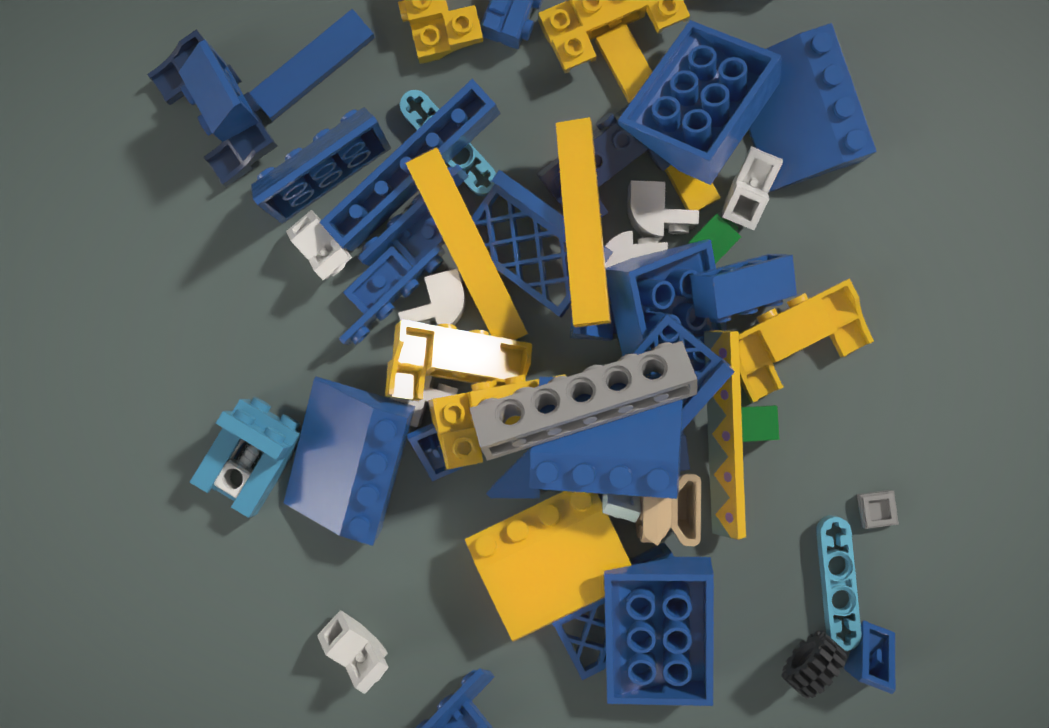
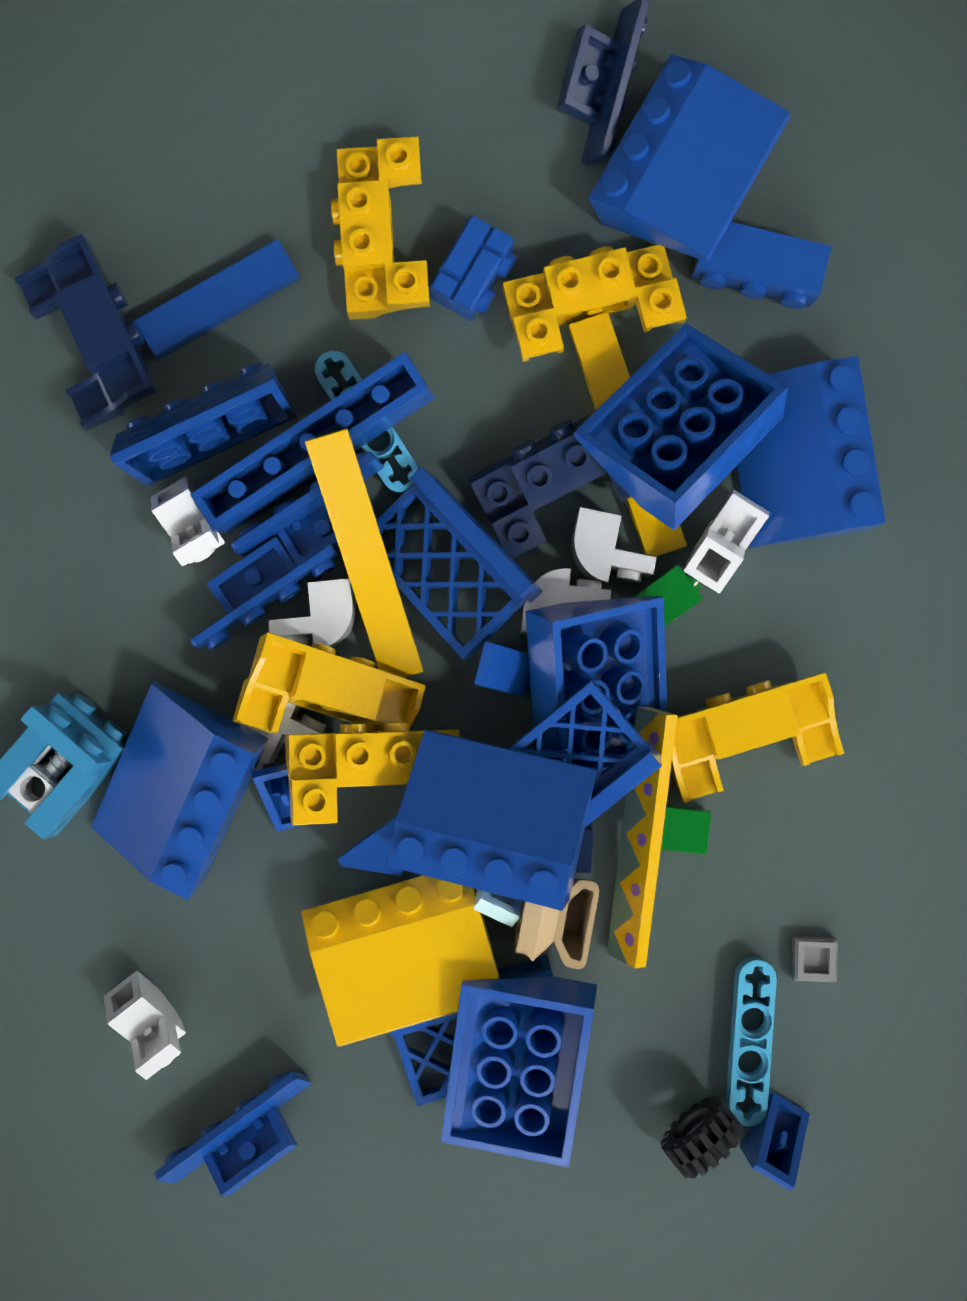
camera: 10 degrees right, 0 degrees up
(215, 93) = (90, 317): blue slope -> none
(582, 223) = (509, 551): yellow tile -> none
(604, 406) = (492, 782): light grey brick -> none
(743, 287) = (694, 660): blue brick -> none

